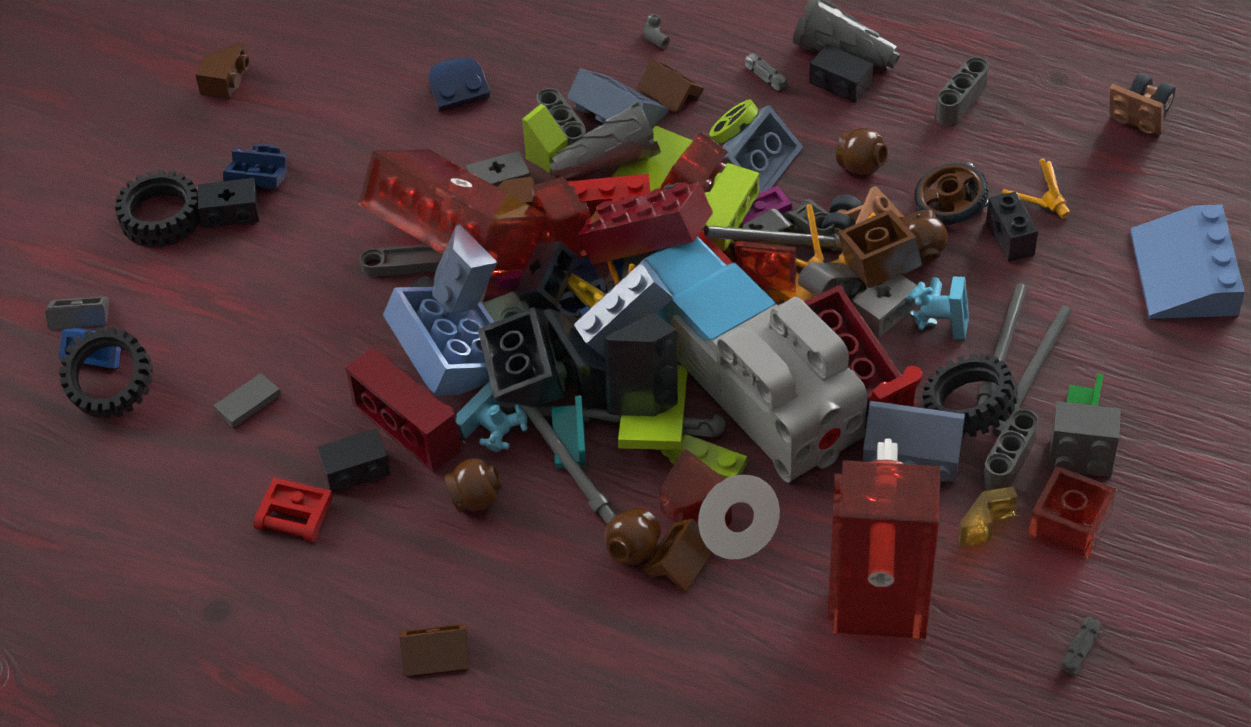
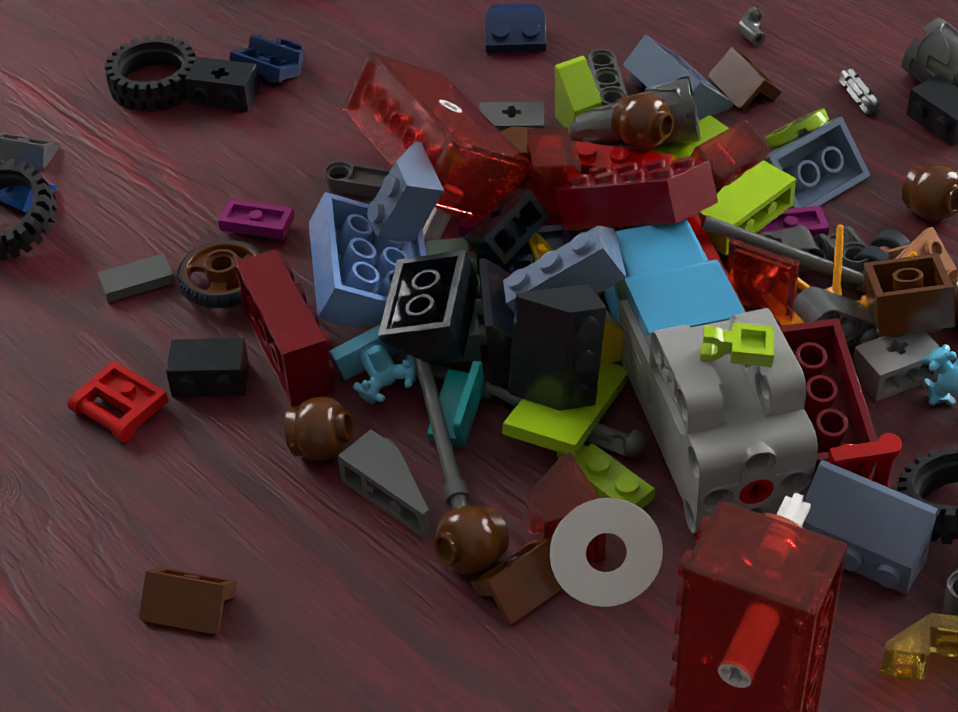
camera: 20 degrees right, 5 degrees down
(321, 375) = (218, 264): none -> reddish brown wheel
(324, 320) = (256, 219): none -> magenta plate
(541, 509) = (380, 474): none -> dark grey slope
(617, 152) = (642, 120): none -> reddish brown piece
(797, 331) = (745, 343): none -> lime plate

